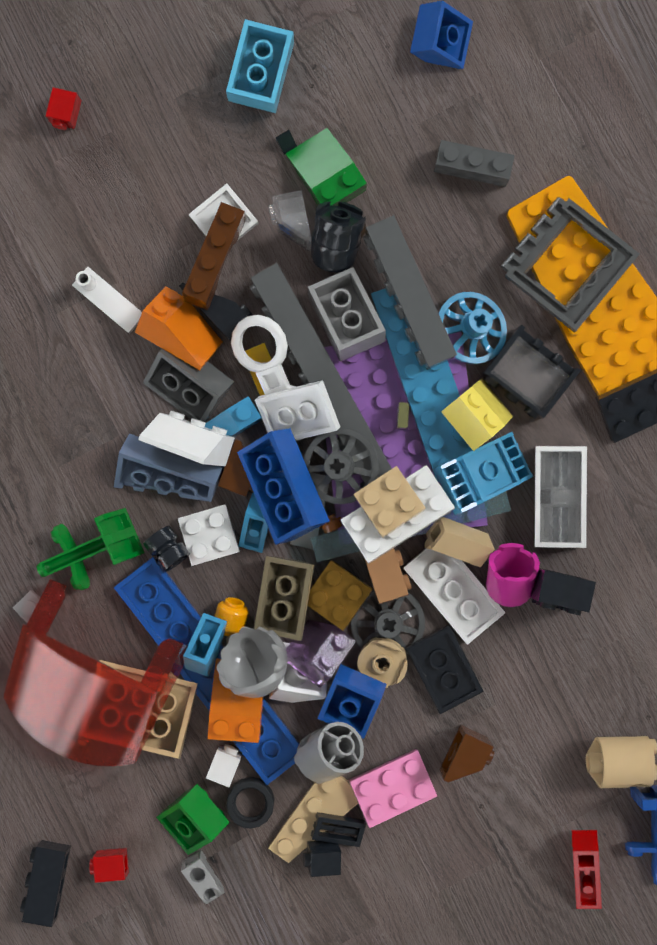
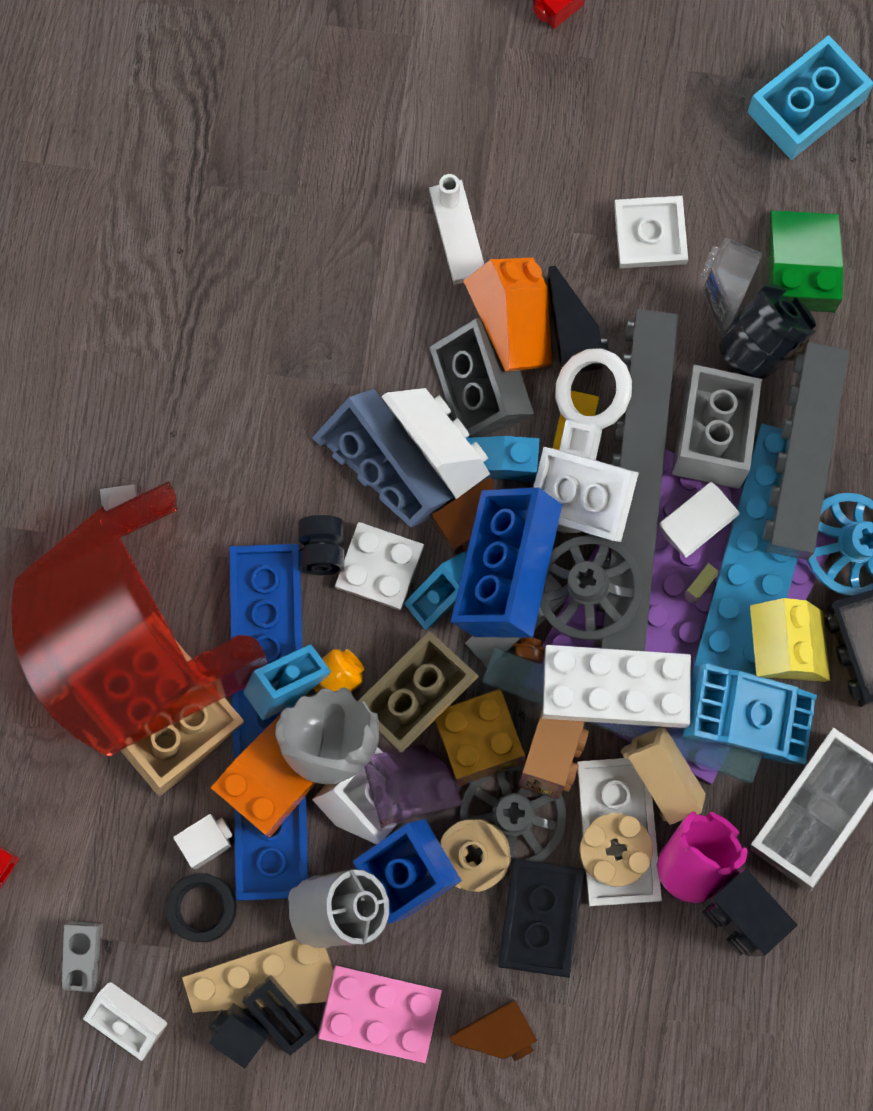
camera: 35 degrees right, 10 degrees down
(116, 537) = (275, 490): green piece -> none
(193, 819) = (120, 877): green slope -> none
(212, 256) = (590, 269): reddish brown arch -> none
(253, 893) = (125, 1020): none -> white slope
(286, 142) = (780, 197): black piece -> none
(374, 378) = (698, 519): none -> white slope
(389, 502) = (618, 662): tan plate -> none
(458, 589) = (634, 860): none -> tan plate

